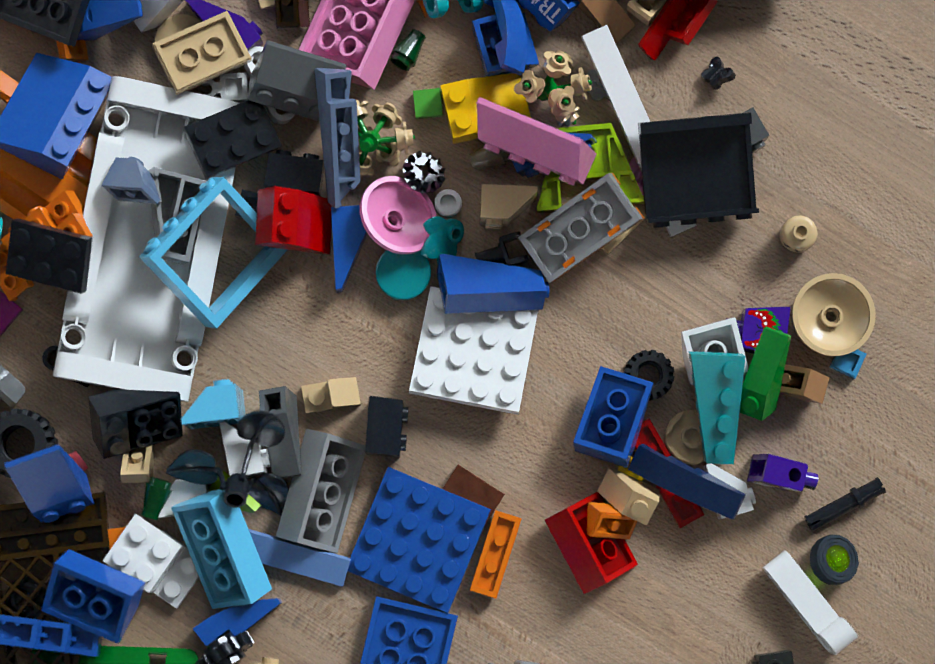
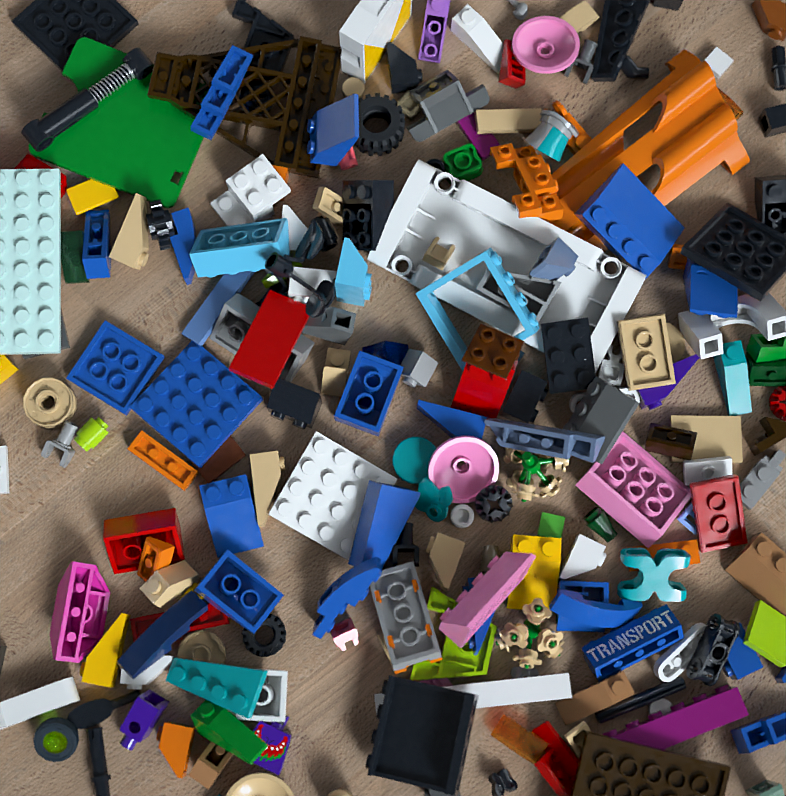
camera: 110 degrees right, 5 degrees down
(36, 330) = (463, 163): none -> green piece
(49, 255) = (514, 180): black plate -> none
(92, 596) = (237, 137): blue slope -> none
(155, 497) = (299, 209): dark green cone -> none
(158, 321) = (438, 255): none -> tan tile
(165, 460) = (329, 233): none -> black brick
(260, 217) = (493, 351): none -> reddish brown hinge
(295, 345) = (388, 350): none -> clear blue slope
(299, 303) = (417, 368): none -> light grey brick
(323, 473) = (270, 339): none -> red tile
(346, 346) = (368, 393): none -> blue slope
(452, 59) = (582, 557): none -> white slope
(476, 431) = (266, 478): none -> tan slope
(491, 645) = (91, 433): none -> lime brick
(531, 454) = (231, 515): none -> blue slope
(572, 297) = (345, 590): none -> blue slope
(617, 289) = (344, 632): none -> tile
(666, 69) = (519, 739): none -> clear orange slope
(694, 585) = (78, 612): none -> dark pink wedge
(734, 539) = (101, 663): none -> yellow slope
(788, 526) = (98, 710): none -> black piece
(795, 428) = (176, 745): none -> orange slope

